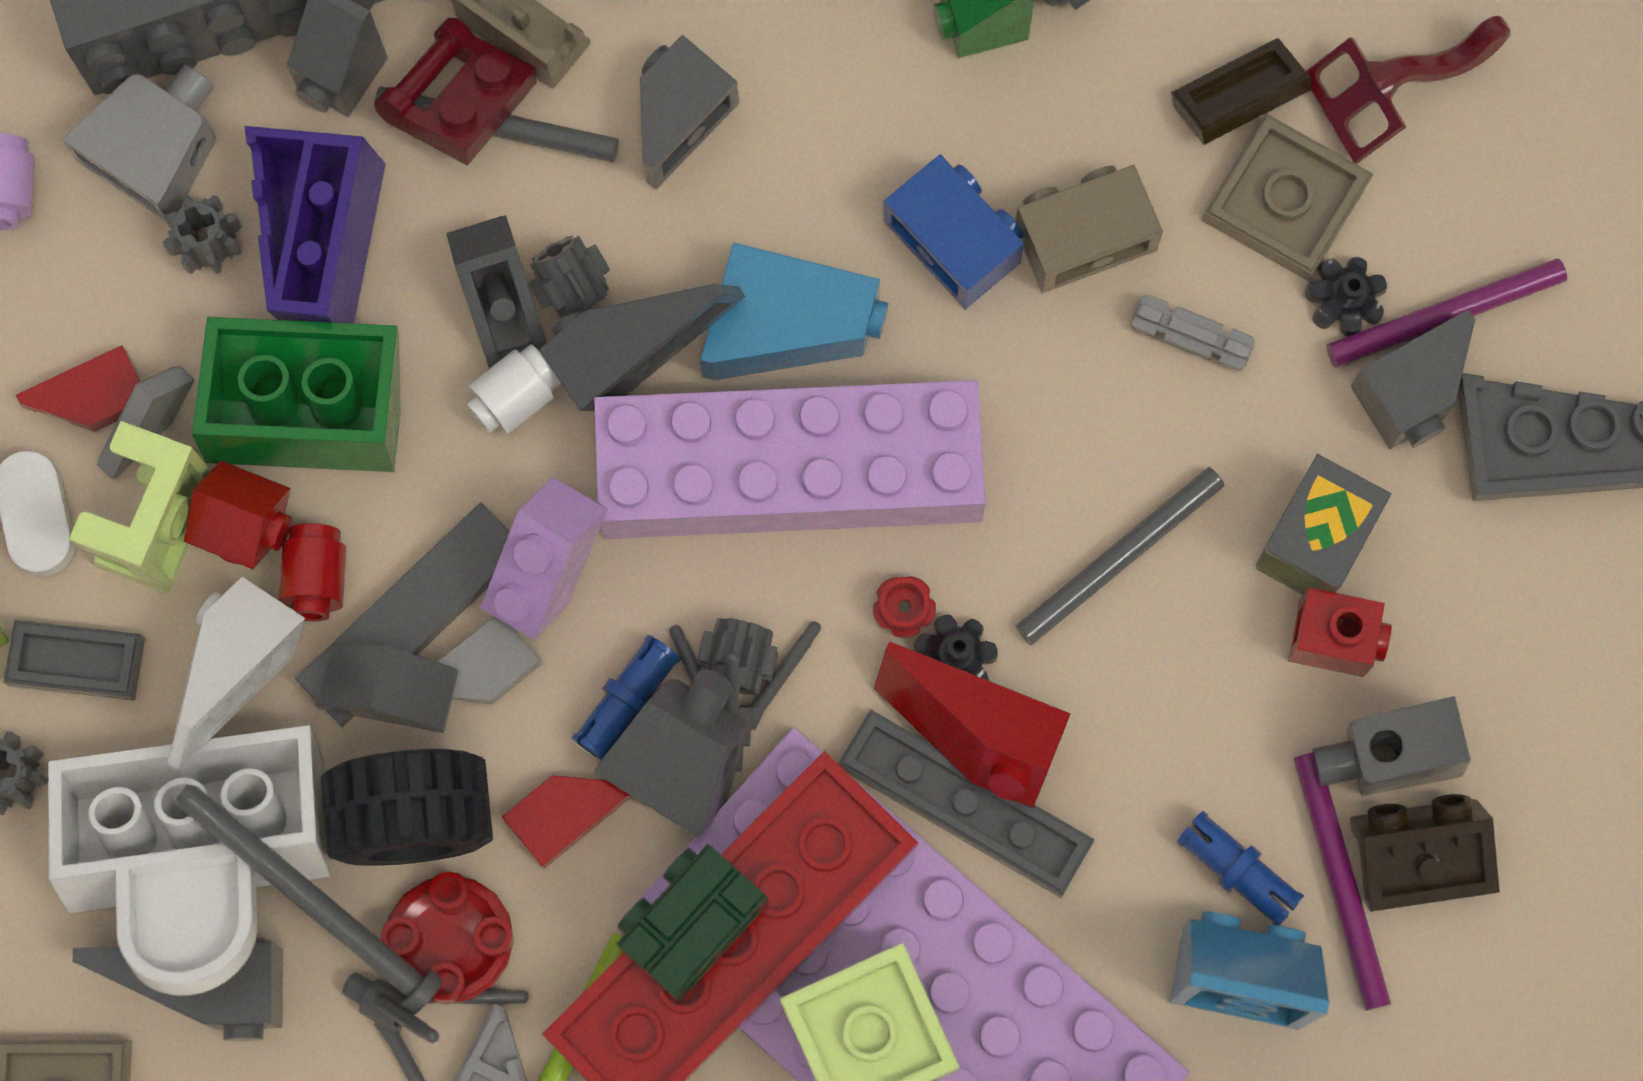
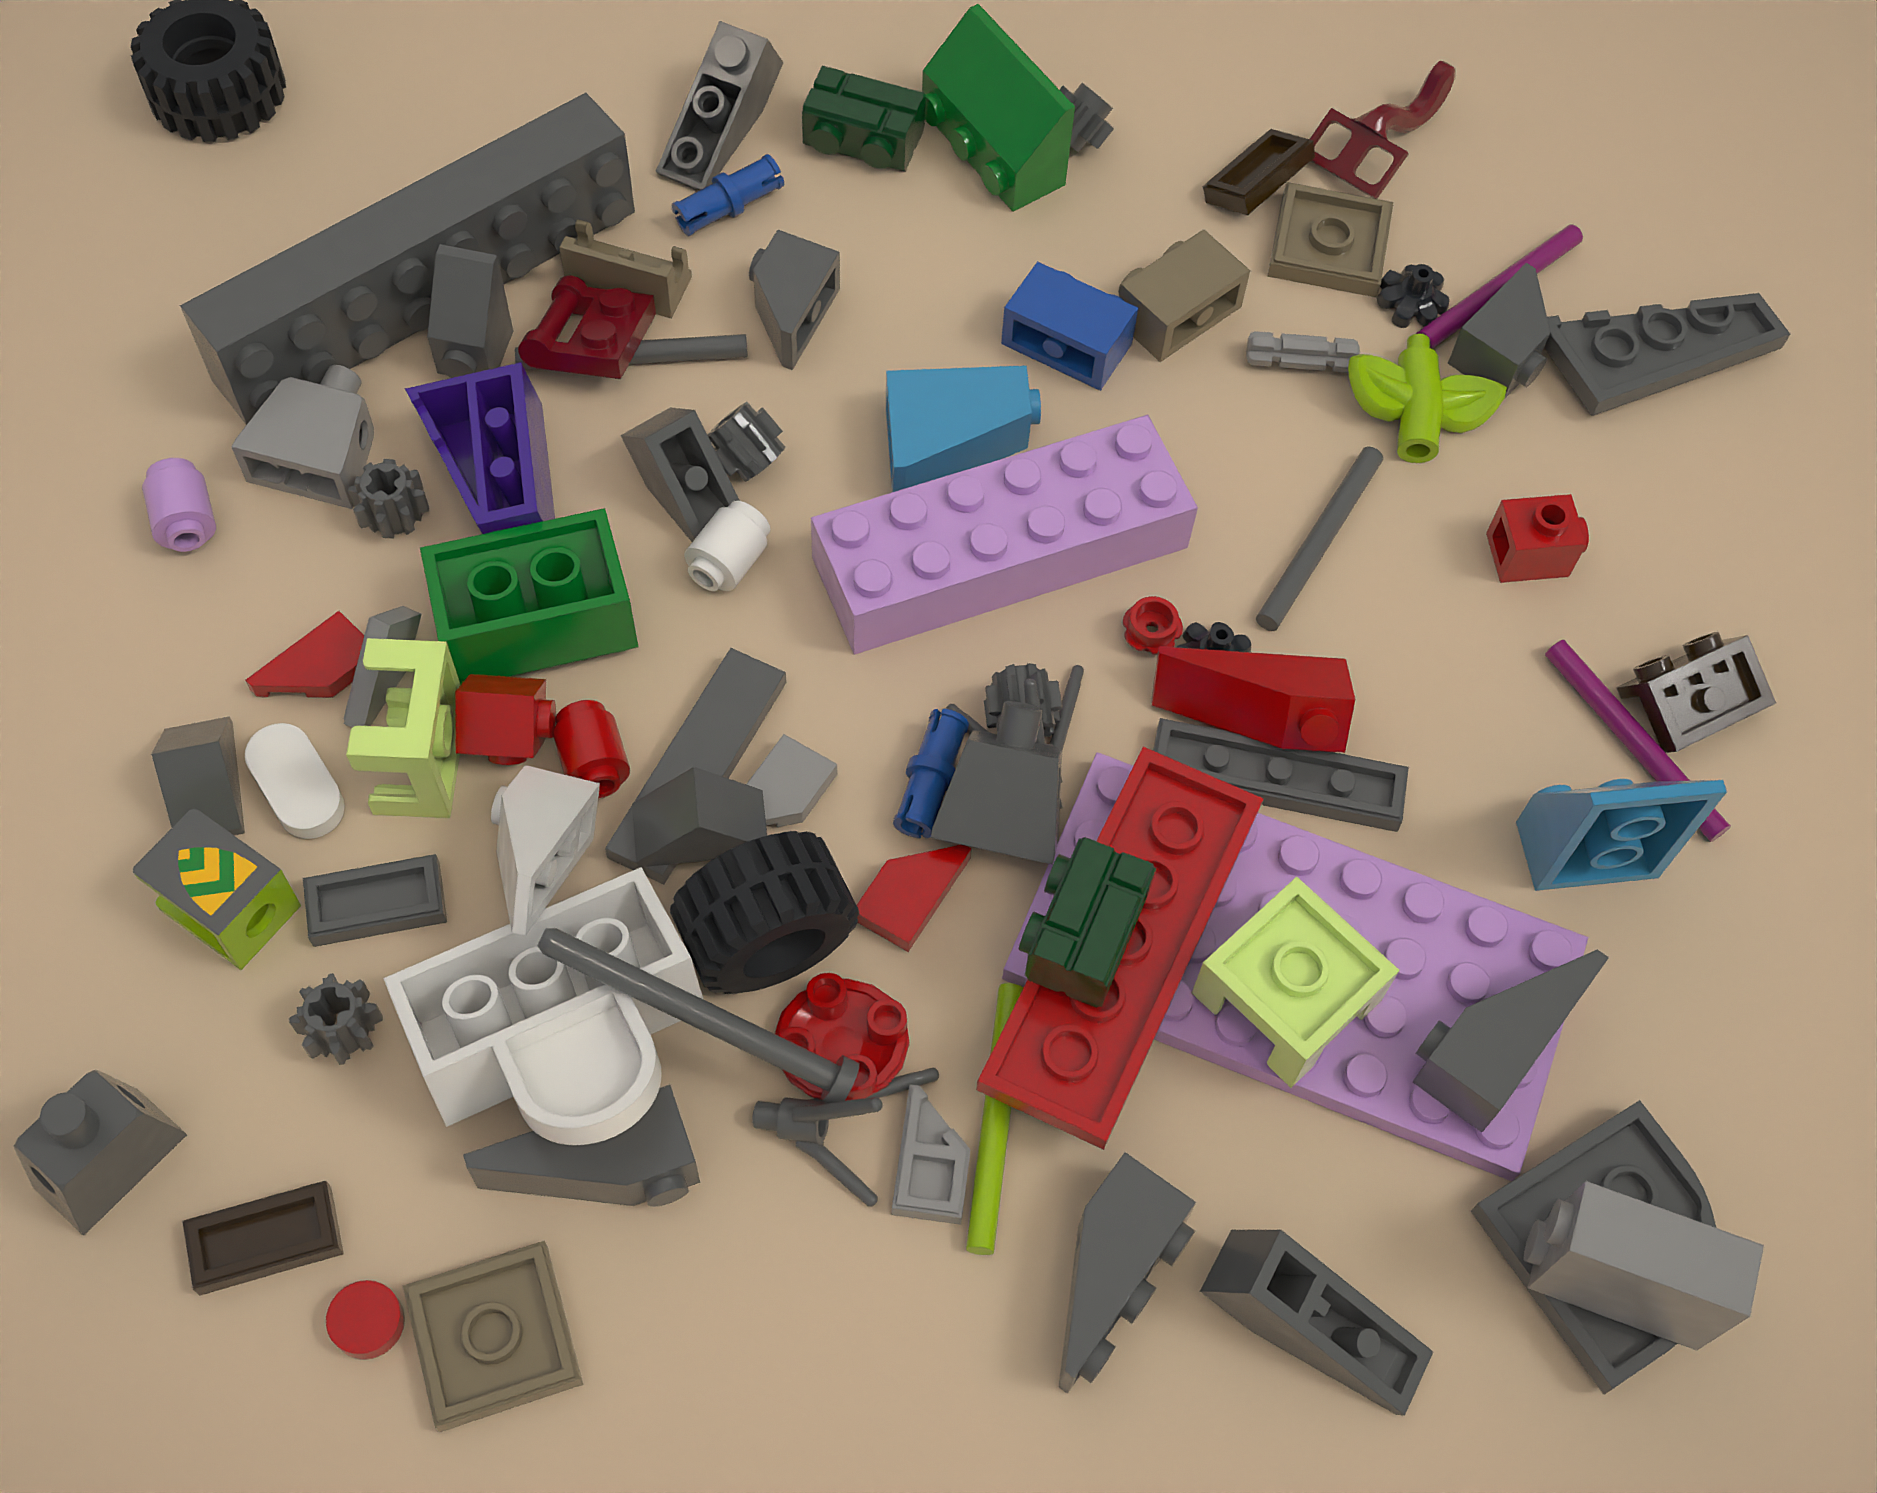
camera: 25 degrees left, 15 degrees down
(543, 558) = (813, 662): lavender brick -> none
(623, 344) = (828, 461): dark grey slope -> none
(1240, 869) = (1547, 751): blue pin -> none
(1293, 424) = (1421, 398): none -> lime plant
(1323, 528) = (1485, 457): piece -> none
(1426, 743) = (1644, 602): dark grey torso -> none

